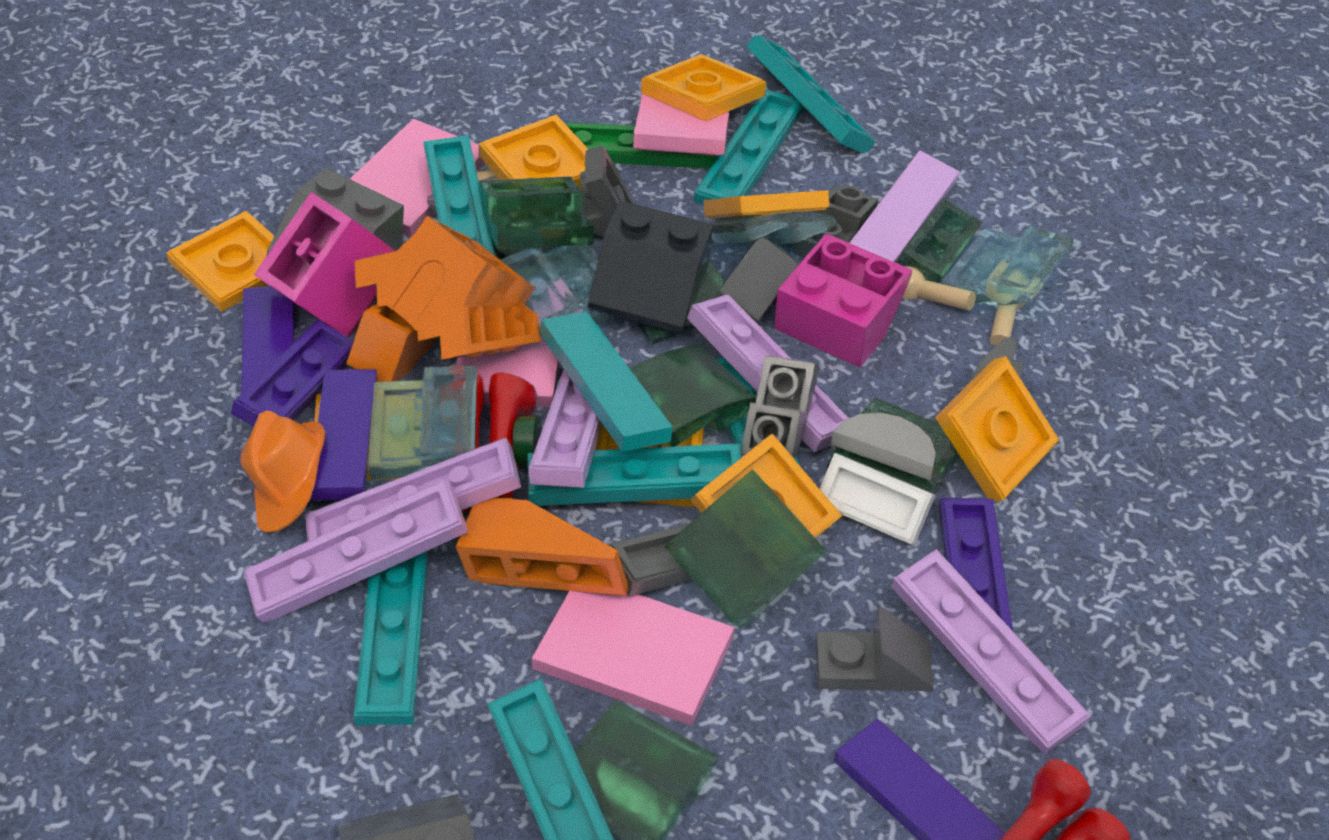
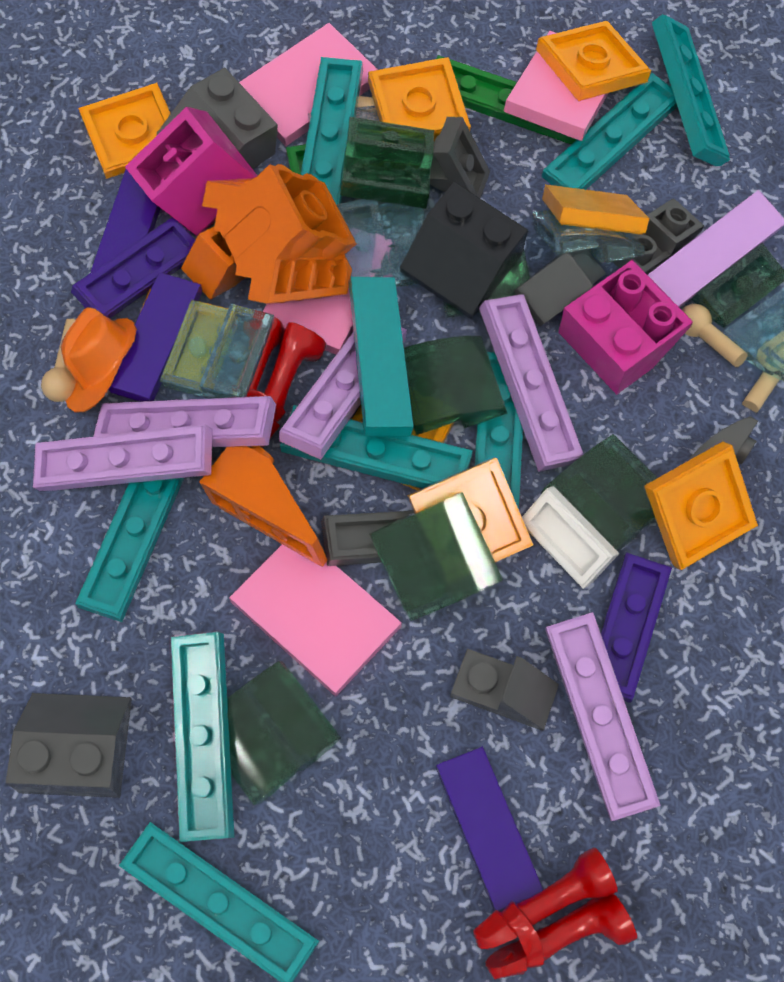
camera: 20 degrees right, 20 degrees up
(245, 509) = (58, 382): none -> tan bar
(525, 437) = (299, 385): dark green tile -> none
(781, 403) = (520, 428): dark grey slope -> none
(887, 441) = (599, 489): light grey tile -> none

